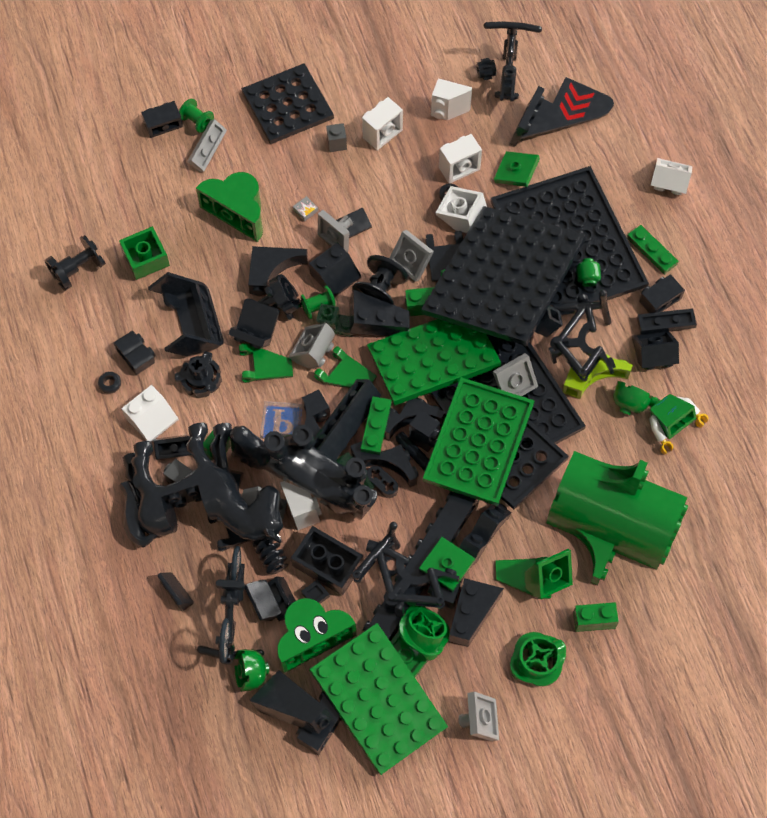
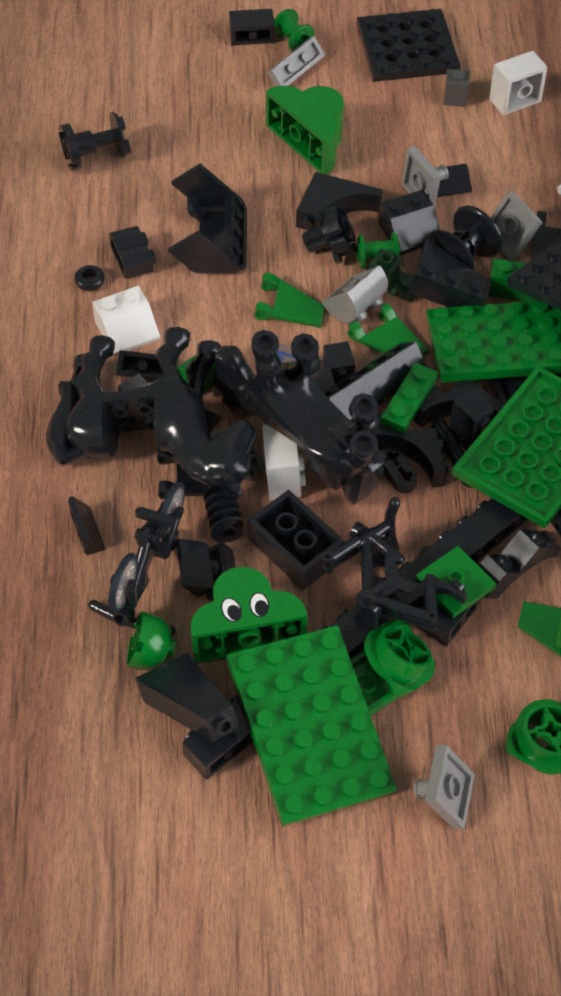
camera: 15 degrees right, 10 degrees down
(144, 252) = (180, 148): green brick -> none
(199, 374) = (203, 291): black piece -> none
(255, 324) = (292, 254): black bracket -> none
(305, 208) = (393, 153): light grey tile -> none
(316, 592) = (273, 574): black plate -> none
(472, 610) = (474, 650): black wedge -> none

